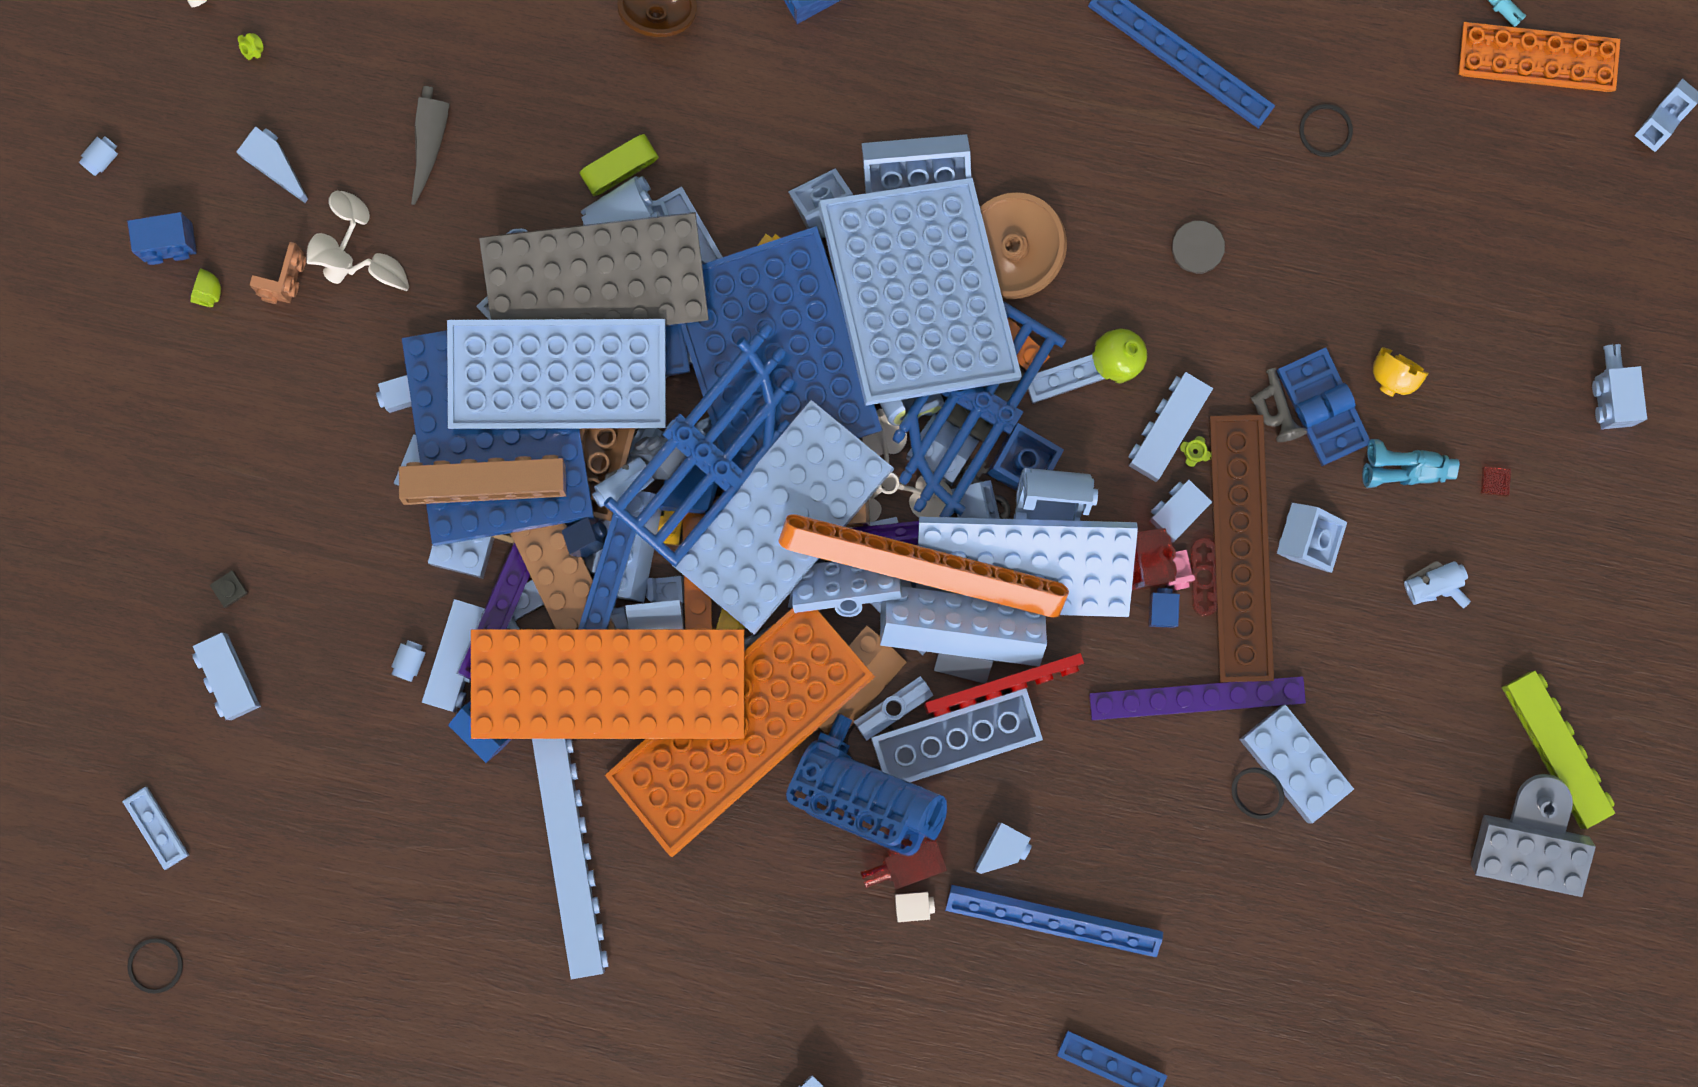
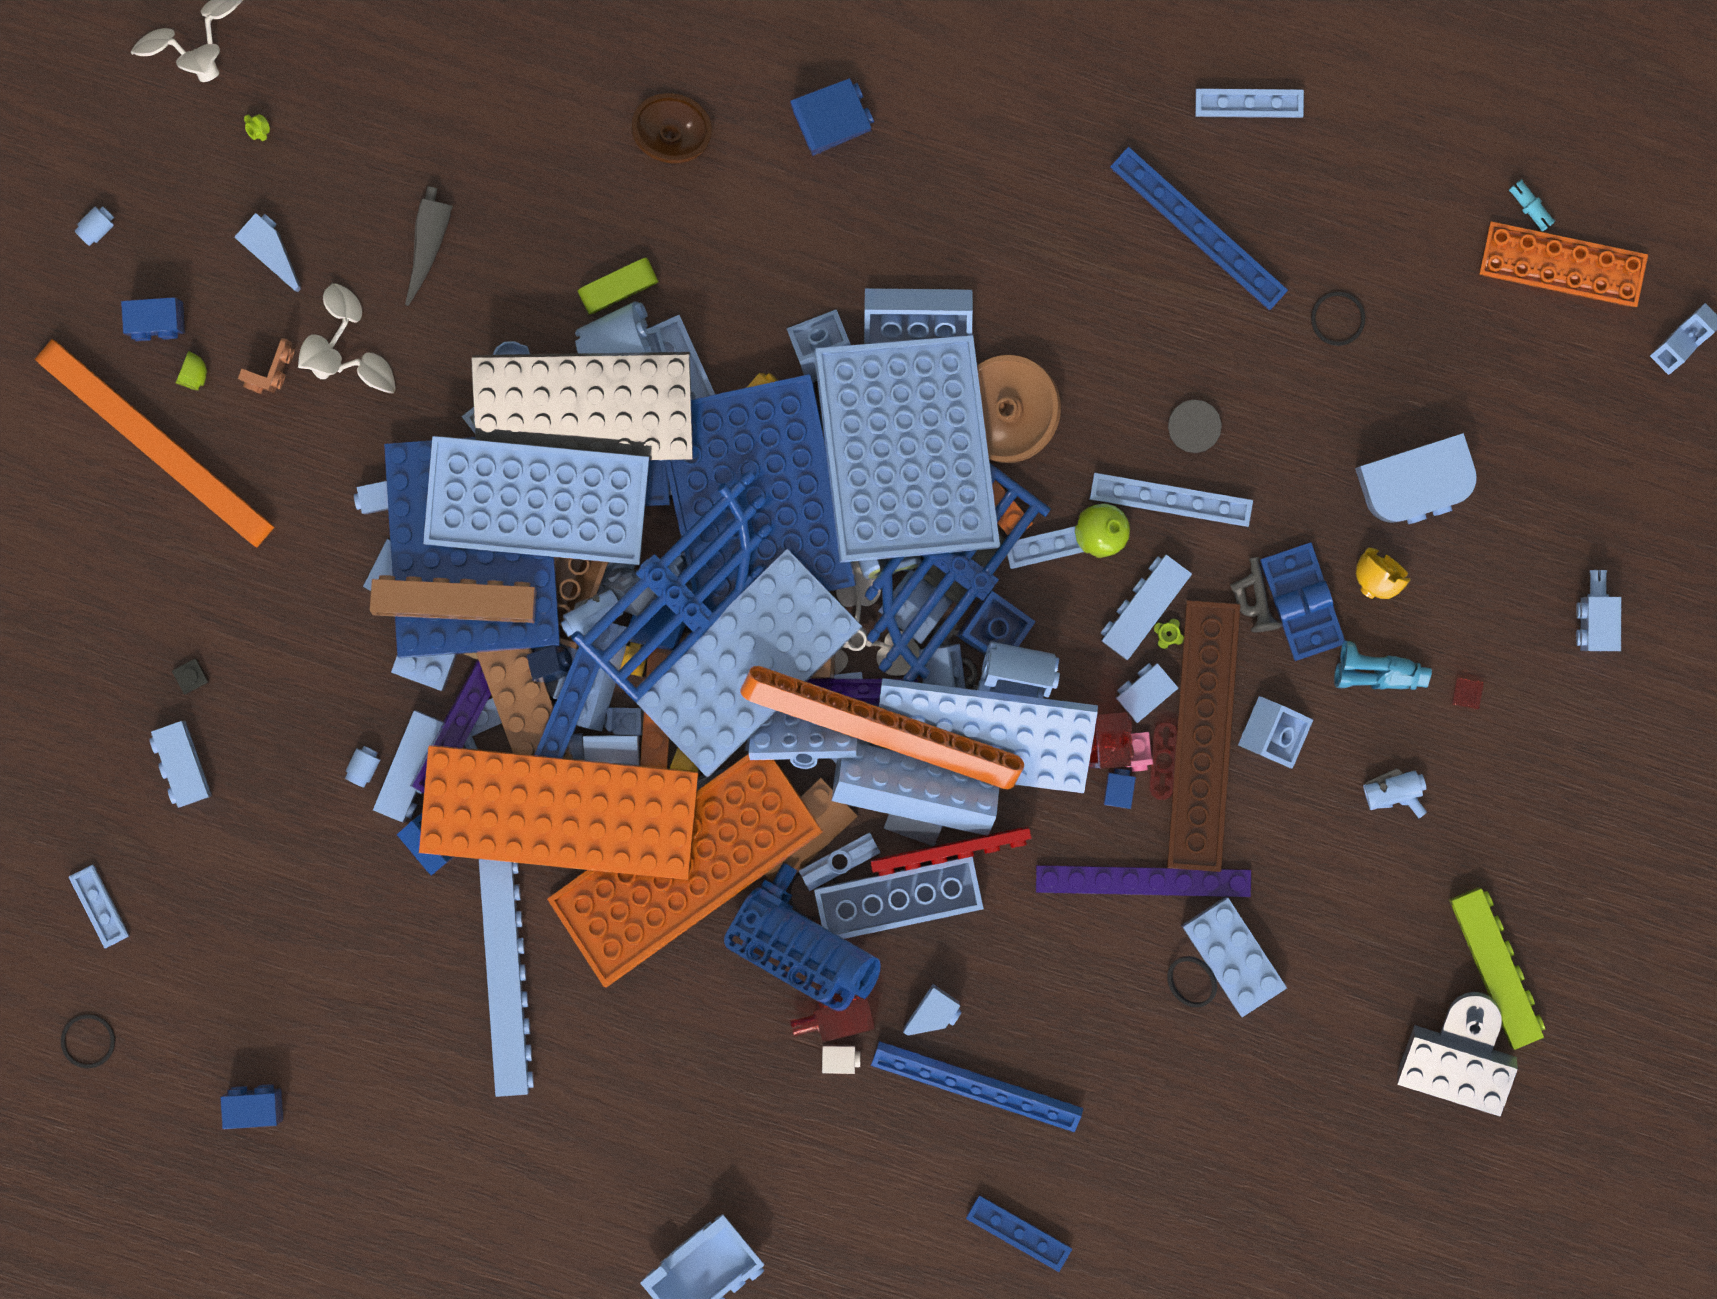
camera: 10 degrees right, 5 degrees up
(174, 362) = (154, 443): none -> orange beam
(325, 1016) = (252, 1107): none -> blue brick
(1183, 320) = (1171, 499): none -> light blue plate
(1425, 275) = (1419, 481): none -> light blue brick

